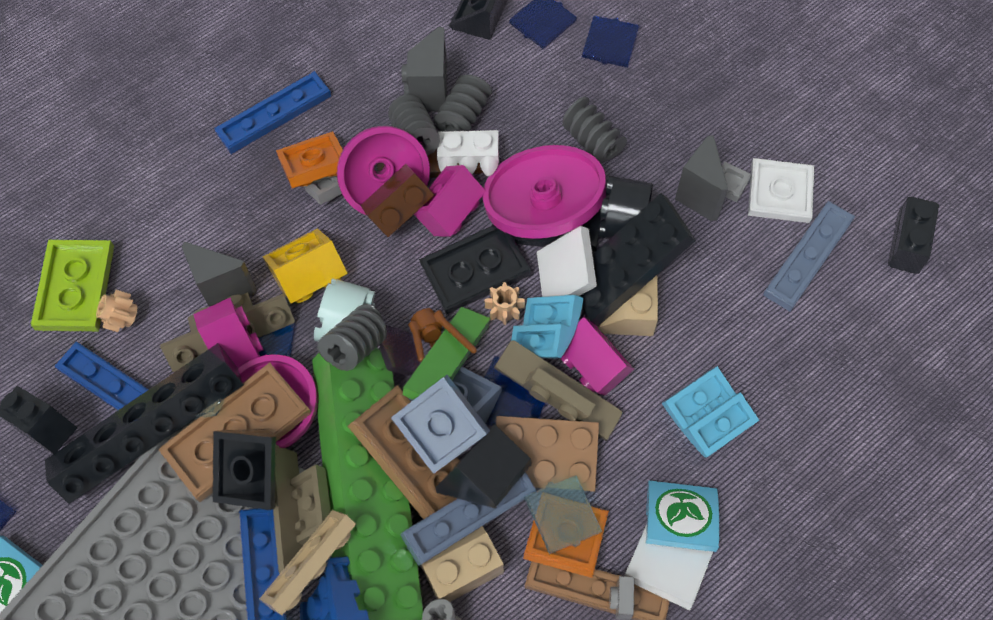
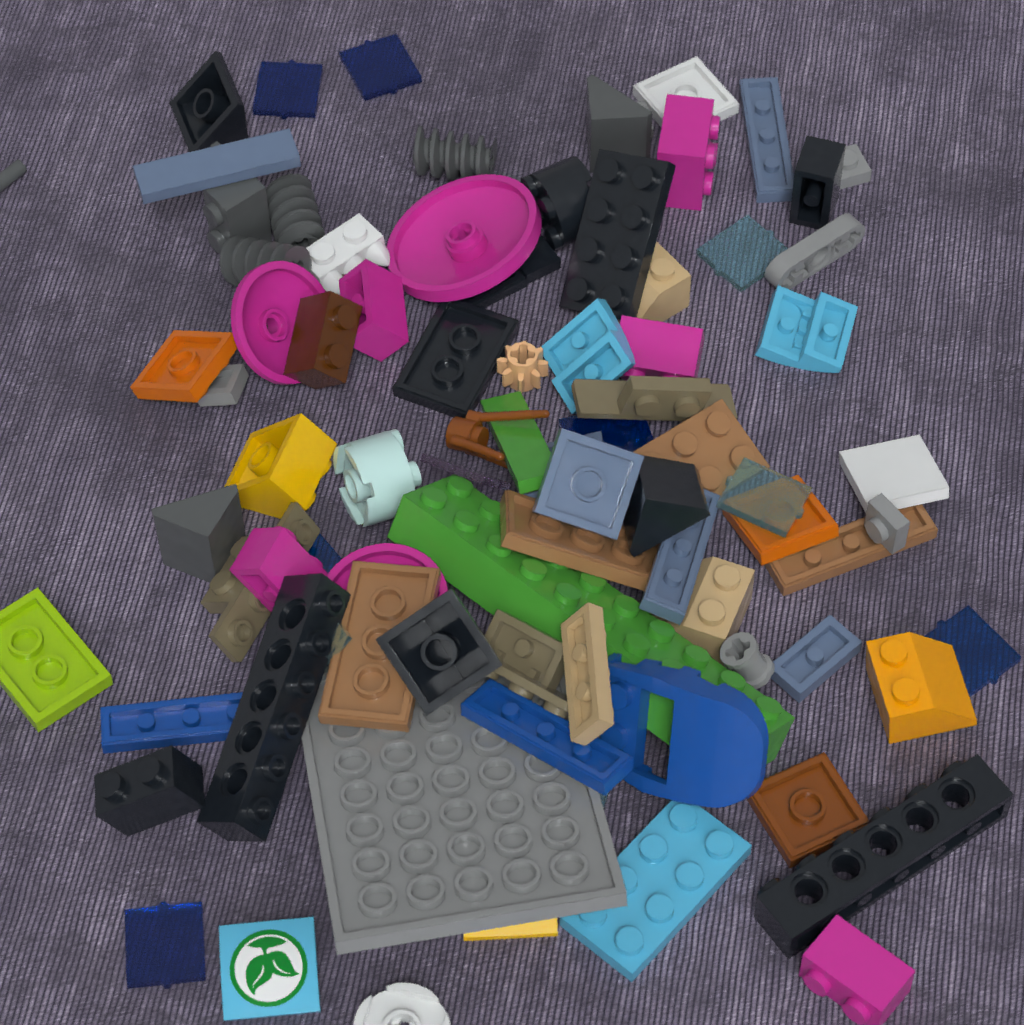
camera: 40 degrees left, 10 degrees down
(116, 310) = (119, 644): light nougat gear -> none
(272, 112) = (81, 358): blue tile -> none
(353, 338) = (432, 464): dark grey piece -> none
(425, 43) = (216, 166): none -> sand blue tile
(567, 265) = (553, 287): white tile -> none
(682, 516) = (868, 429): slope -> none
(721, 325) = (741, 252): none -> clear light blue piece
(736, 229) = (687, 143): none -> dark pink brick
(765, 360) = (815, 252): none -> light grey beam
(805, 313) = (816, 182): none -> black brick
(844, 312) = (855, 168): none -> light grey plate
(913, 235) = (846, 58): black brick -> none

